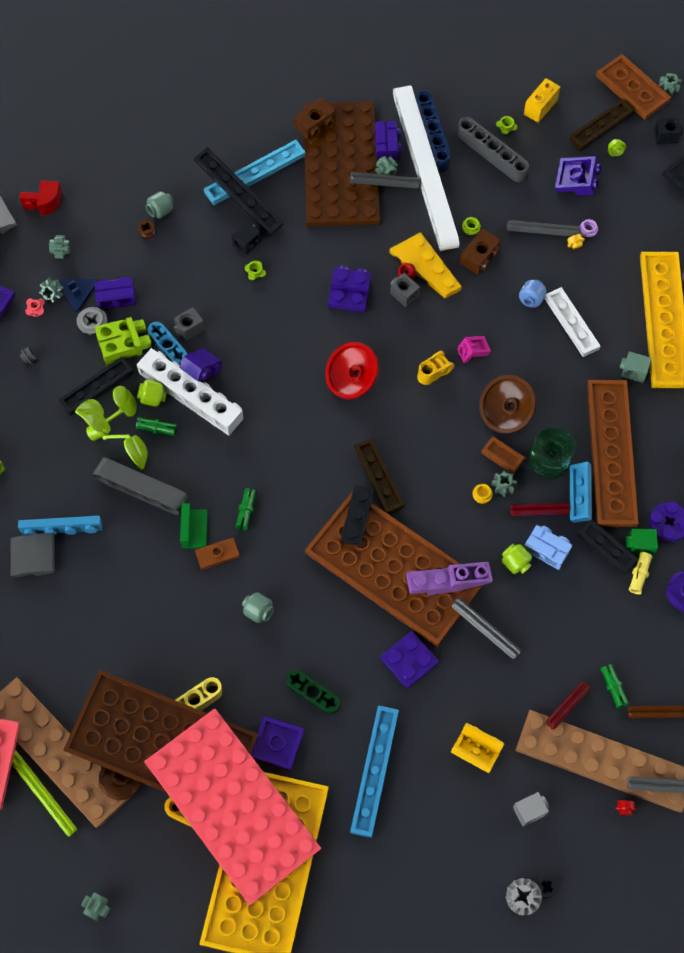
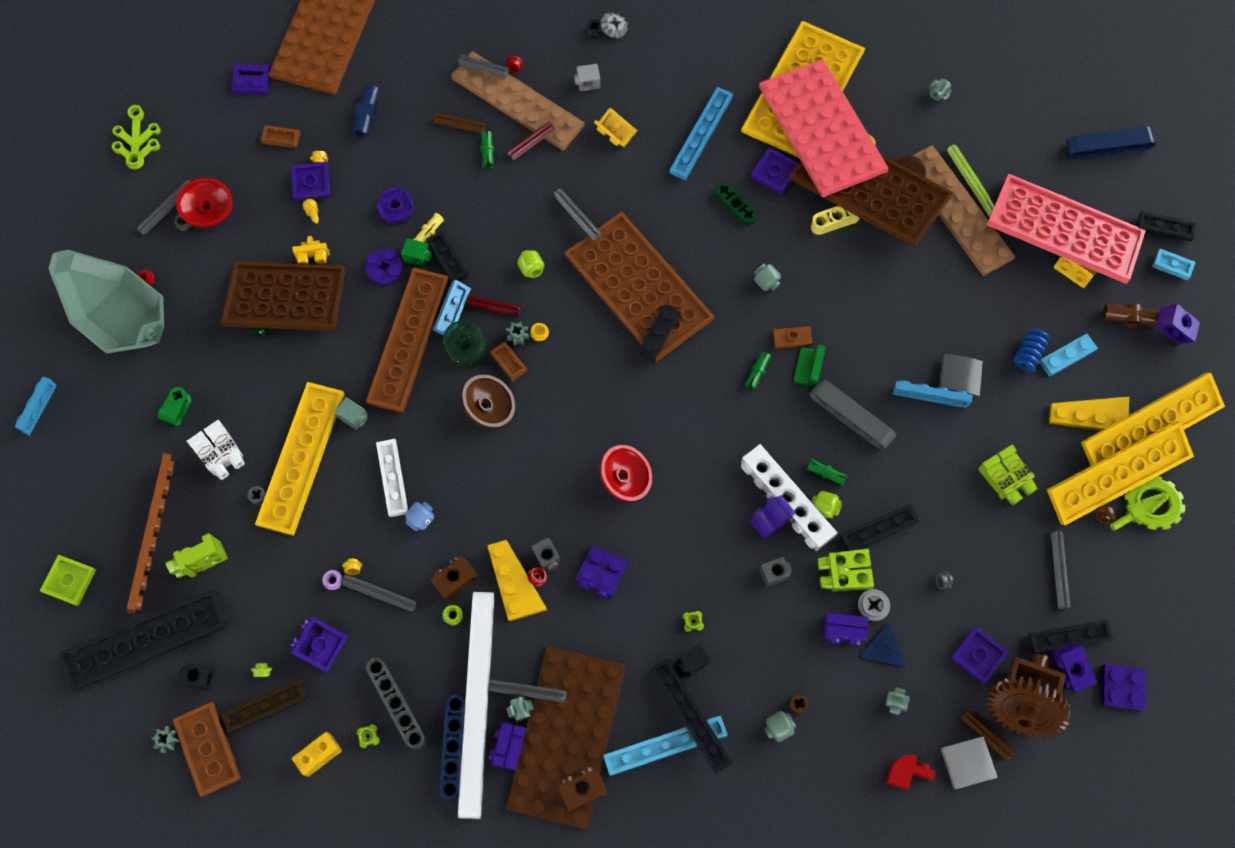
camera: 165 degrees left, 5 degrees up
(35, 312) = (926, 640): coral plate -> none
(51, 290) = (912, 648): sand green gear -> none
(98, 427) = (891, 466): lime plant -> none
(166, 336) = (799, 543): dark azure beam -> none
(379, 476) = (628, 370): dark brown plate -> none
(409, 660) = (648, 210): dark purple plate -> none
(436, 366) = (542, 463): yellow piece -> none
(450, 579) = (596, 255): medium lavender slope -> none
(473, 347) = (498, 473): dark pink bracket -> none
(548, 546) = (499, 268): light blue brick -> none

